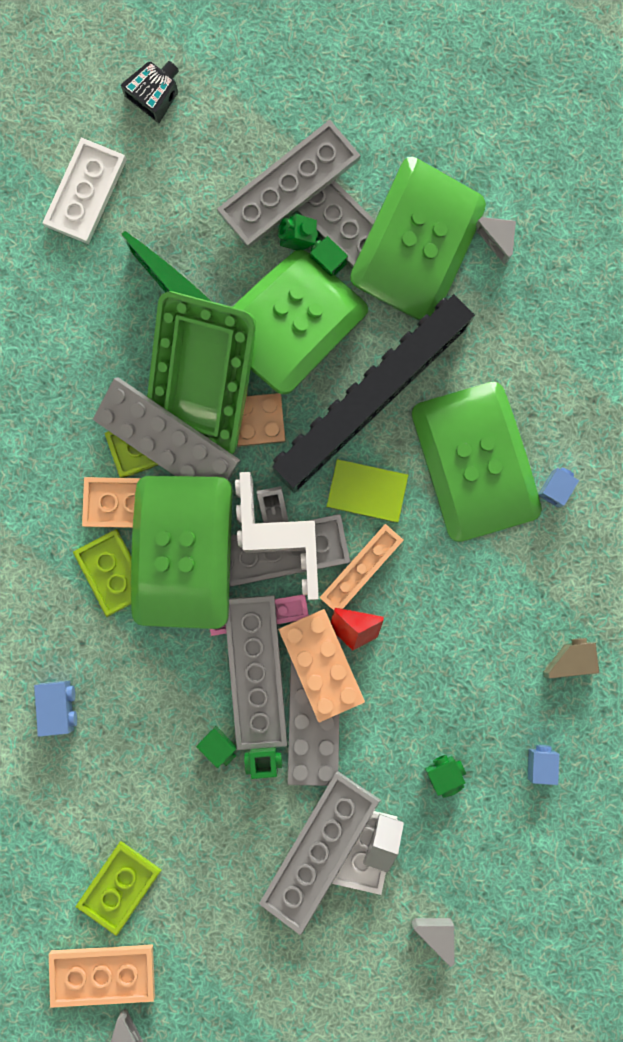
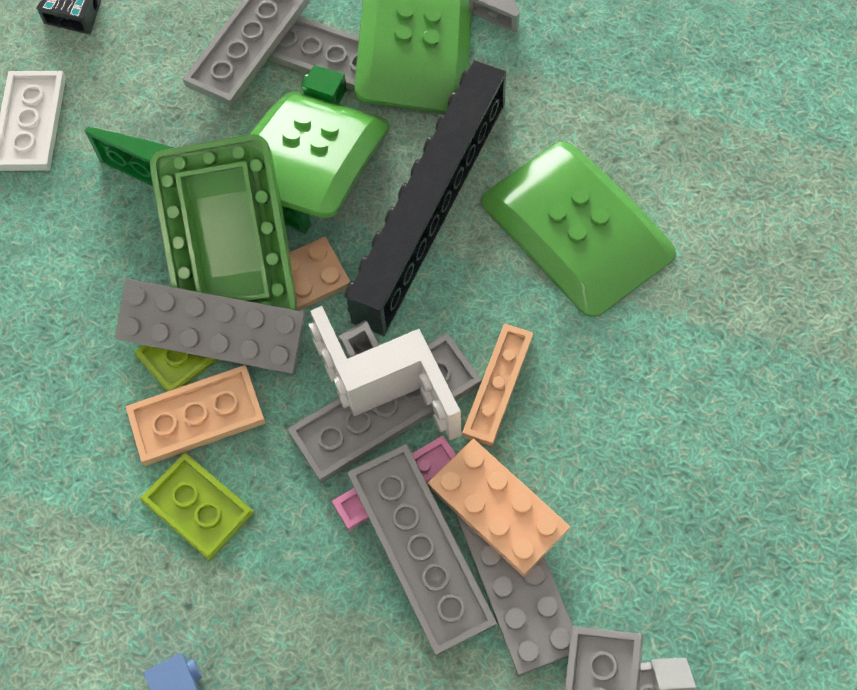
camera: 15 degrees left, 20 degrees down
(181, 552) = (275, 442): bright green wedge -> none
(217, 747) = (409, 661): green brick -> none
(262, 762) = (474, 653): green brick -> none
(297, 232) = (280, 73): green brick -> none
(355, 627) = (521, 448): red slope -> none
(367, 491) = (468, 300): lime tile -> none
(446, 776) = (711, 580): green brick -> none
(543, 765) = (821, 520): medium blue brick -> none
(558, 487) = (681, 214): medium blue brick -> none
(574, 660) = (795, 386): dark tan slope -> none

